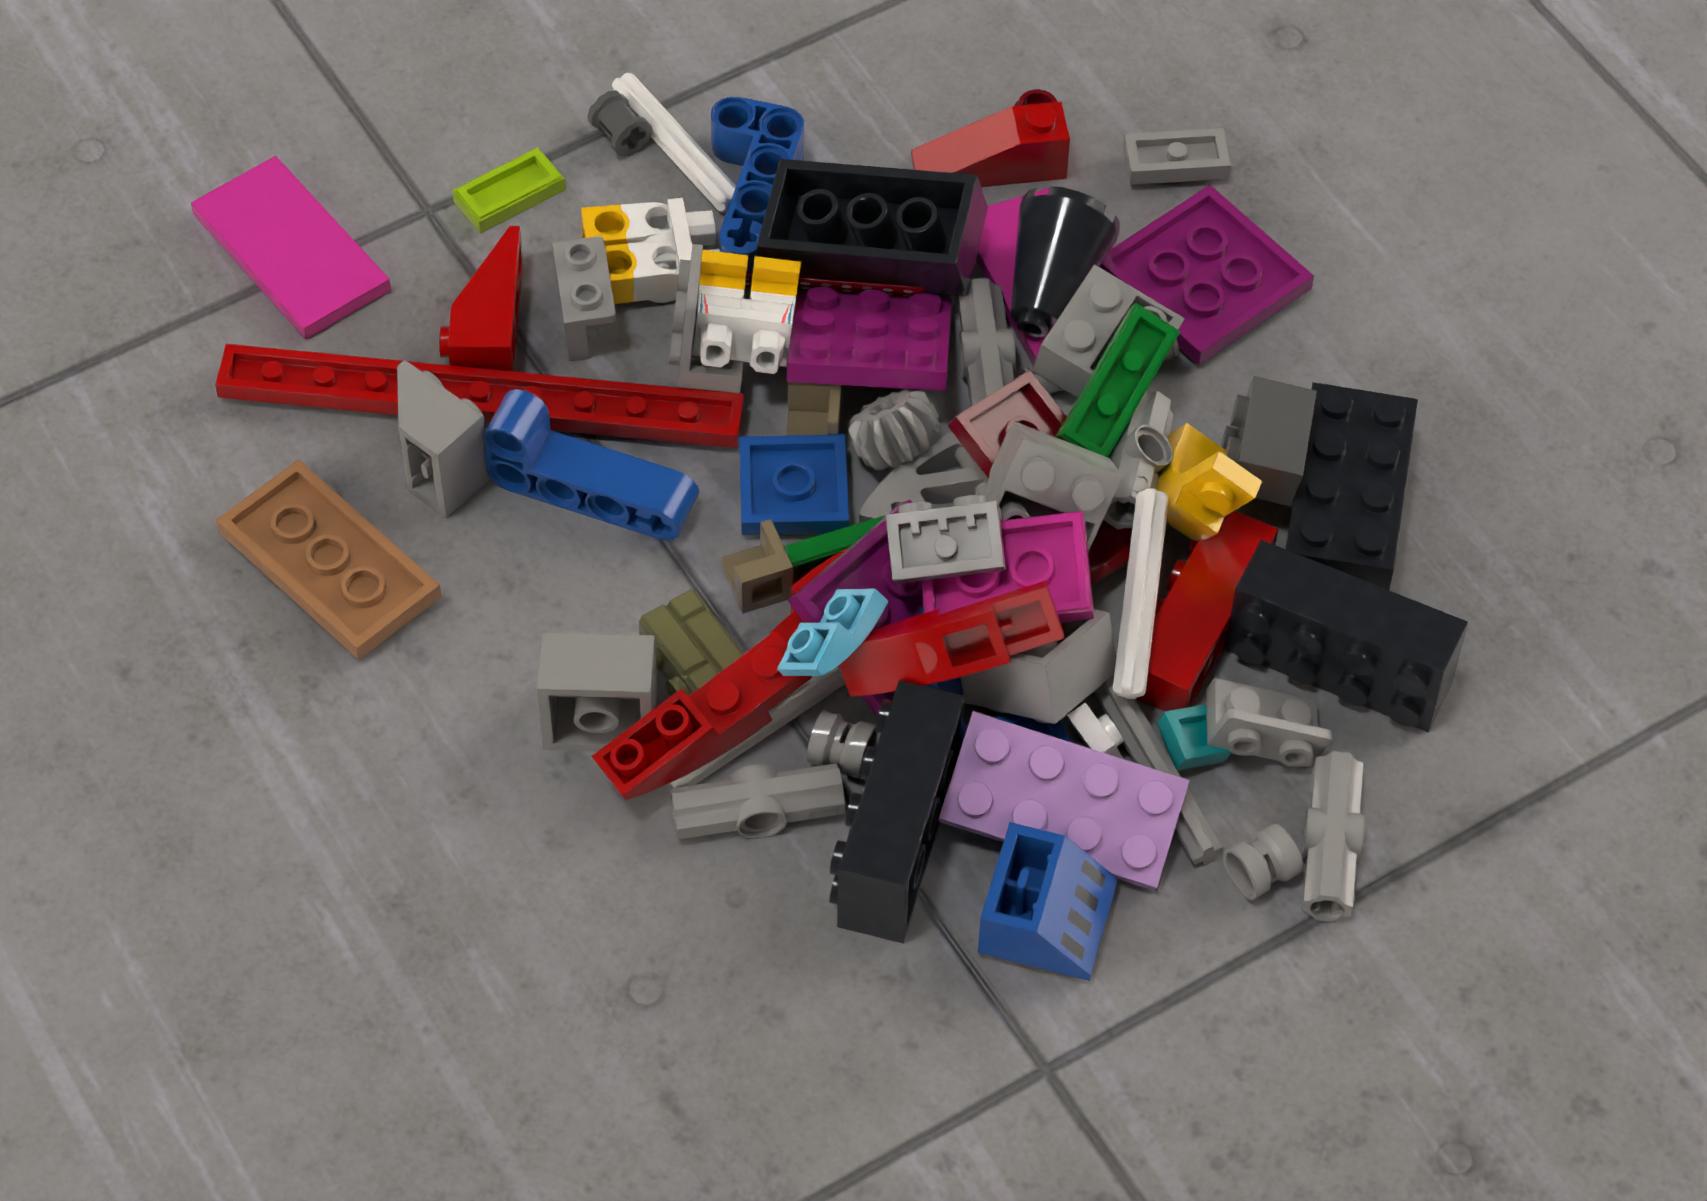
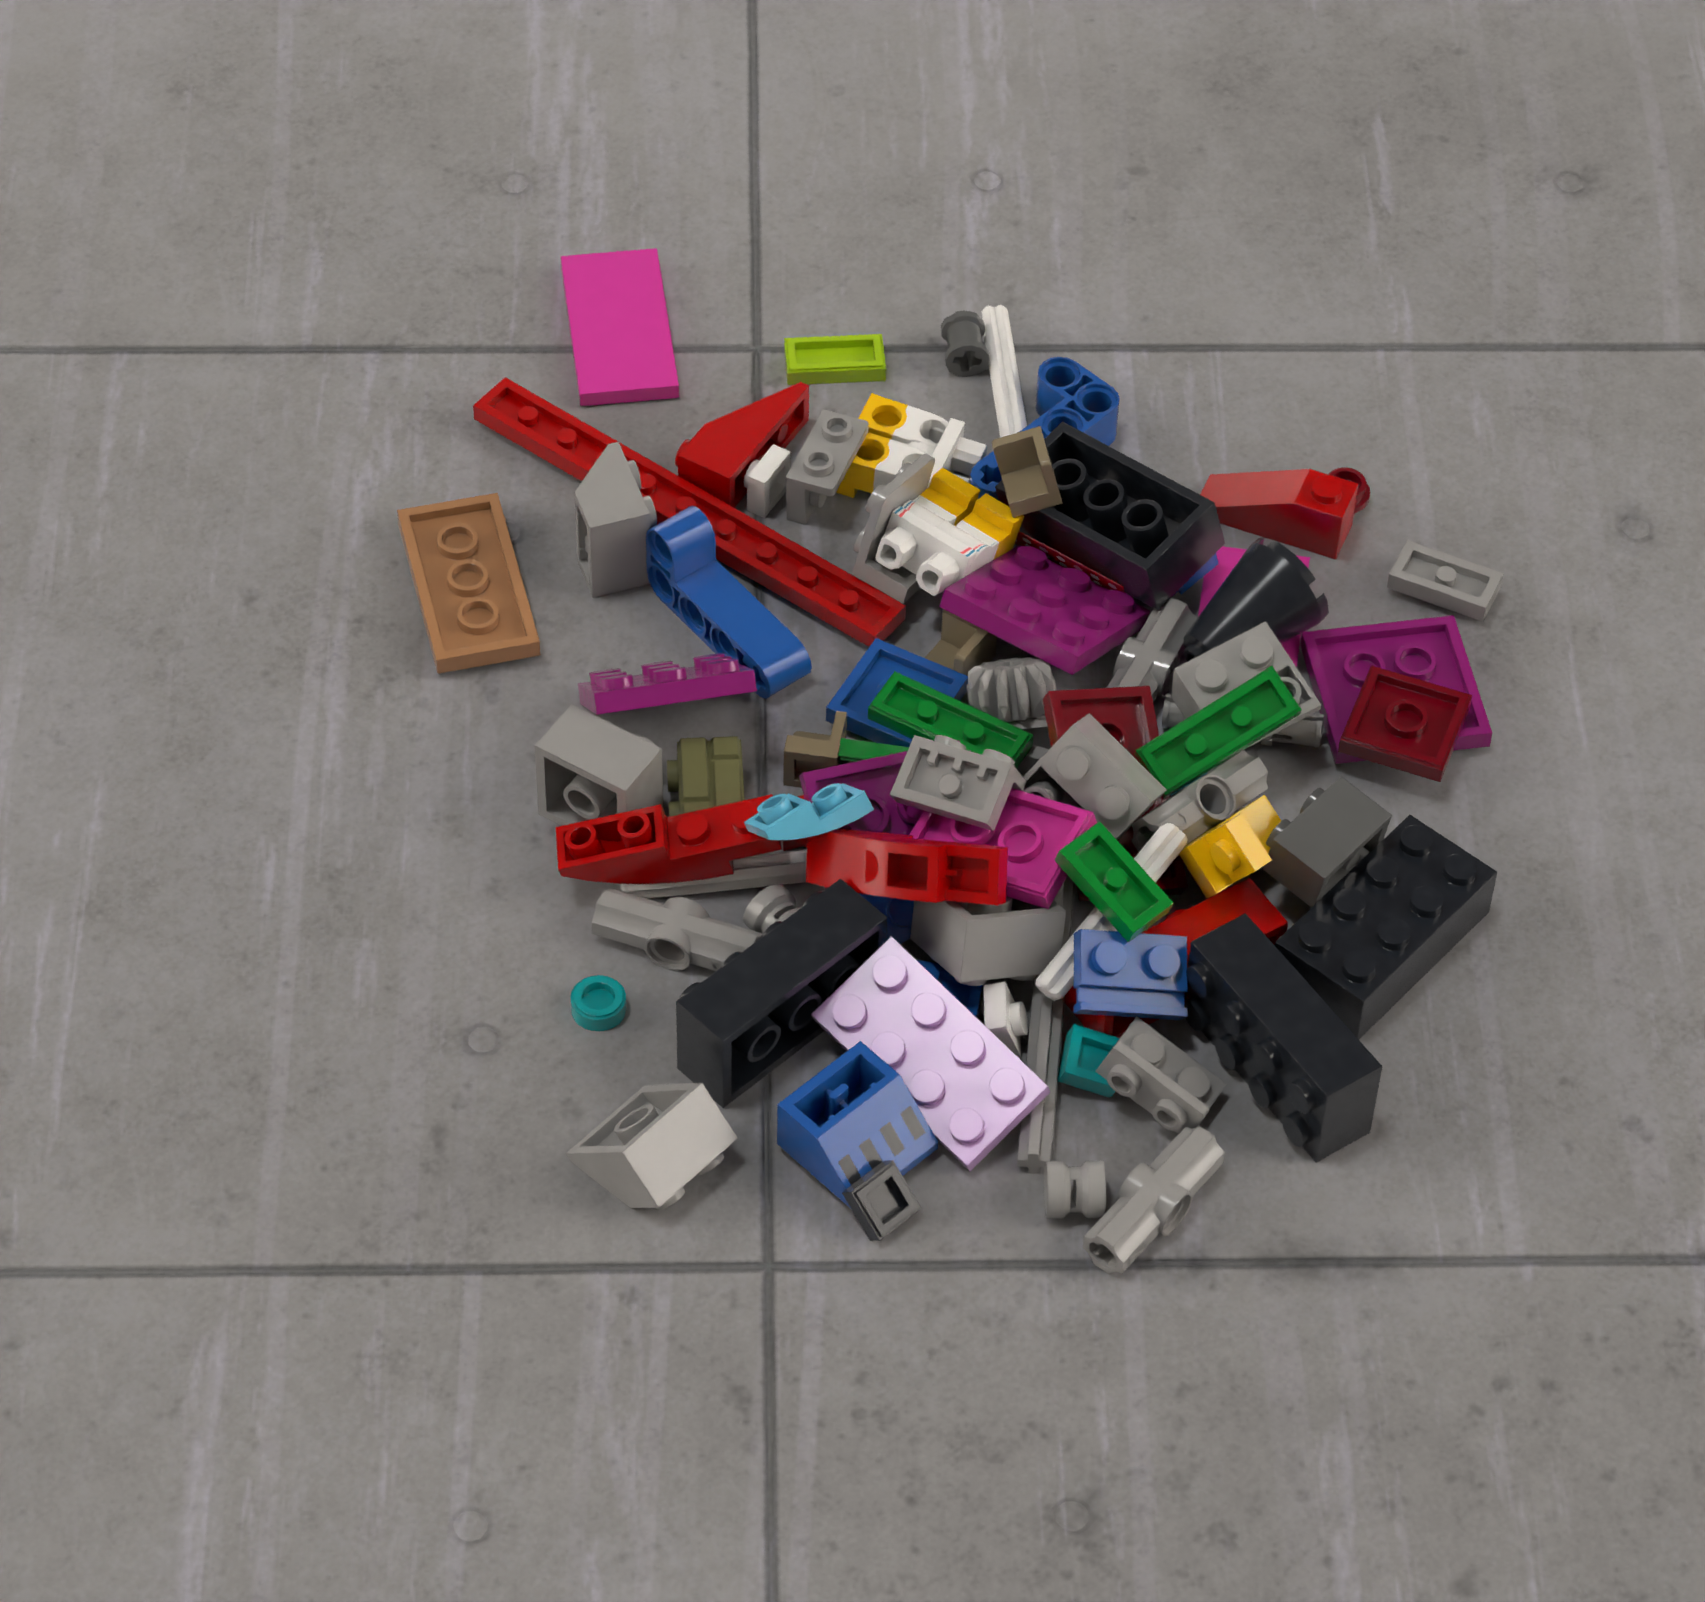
camera: 30 degrees right, 5 degrees down
(534, 332) = (766, 480): none -> white plate
(597, 574) = (665, 684): none -> magenta plate
(728, 902) = (598, 1003): none -> teal tile
(790, 220) = (1026, 471): none -> dark tan panel
(862, 487) = (925, 712): none -> green tile
(877, 1009) = (655, 1144): none -> light grey slope
(1109, 958) = (881, 1200): none -> tile
(1142, 566) = (1114, 881): none -> green plate
(1191, 643) = (1130, 978): none -> plate
(1243, 301) = (1405, 723): none -> dark red tile

